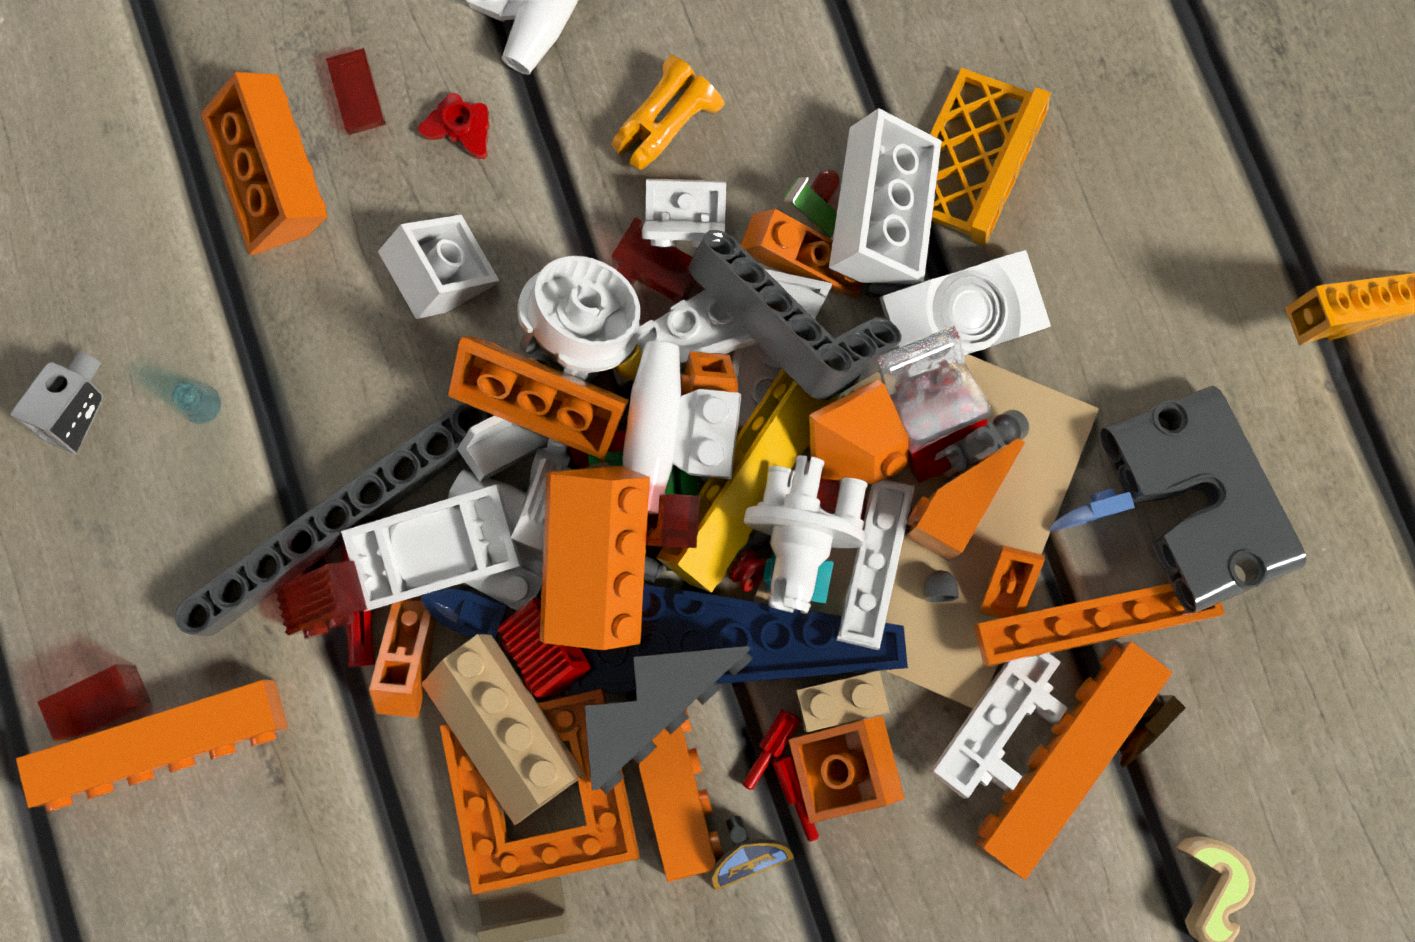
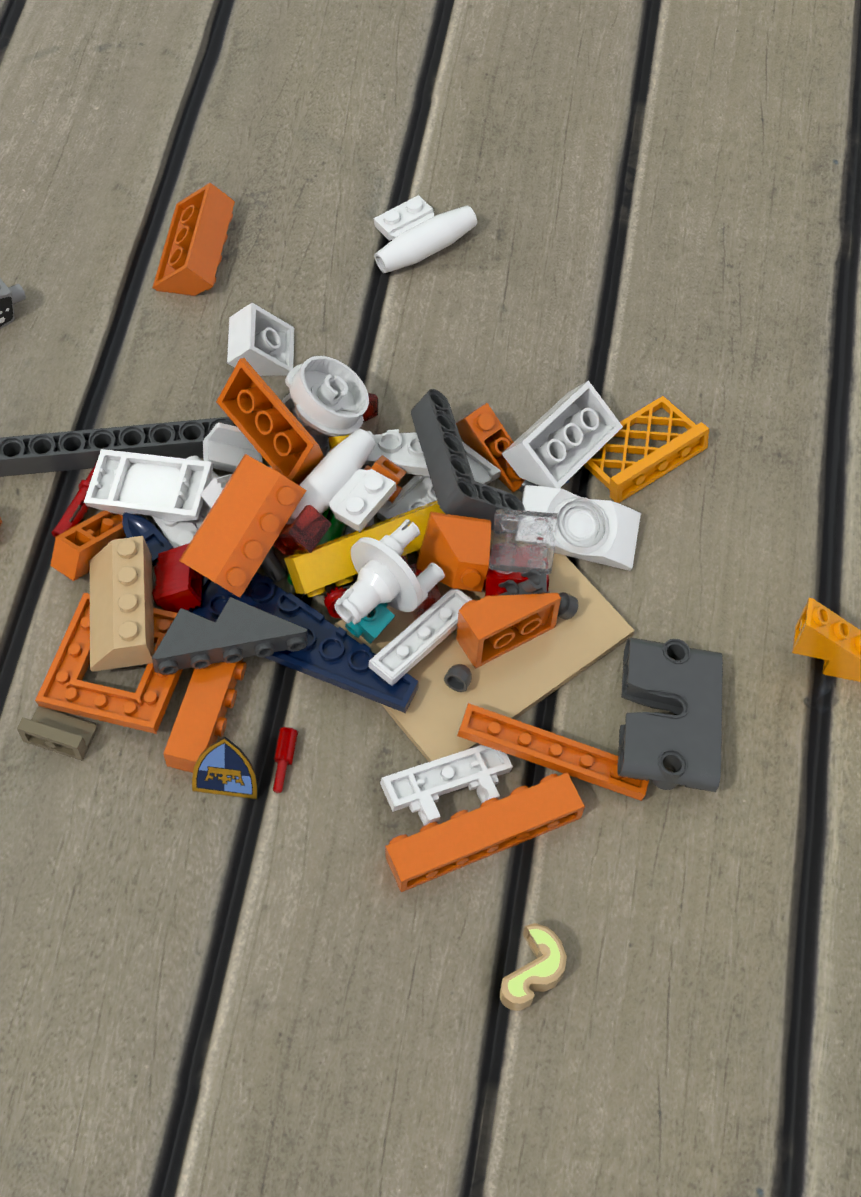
camera: 25 degrees right, 20 degrees down
(197, 402) = (65, 344): clear light blue cone -> none
(321, 599) = (63, 481): clear red brick -> none
(356, 91) = (275, 234): clear red tile -> none
(471, 132) = (326, 278): red animal -> none
(656, 267) = (393, 403): clear red panel -> none
(657, 136) = (438, 337): light orange piece -> none
(683, 210) = (429, 376): white bracket -> none
(772, 745) = (289, 718): red axle -> none
(814, 200) = (517, 421): piece -> none
(841, 701) = (349, 711): tan brick -> none
(846, 769) = (327, 753): orange slope -> none
(1011, 582) = (509, 690): orange slope -> none
(1103, 505) = (597, 688): medium blue plate -> none
(1151, 726) = (555, 837): dark brown plate -> none

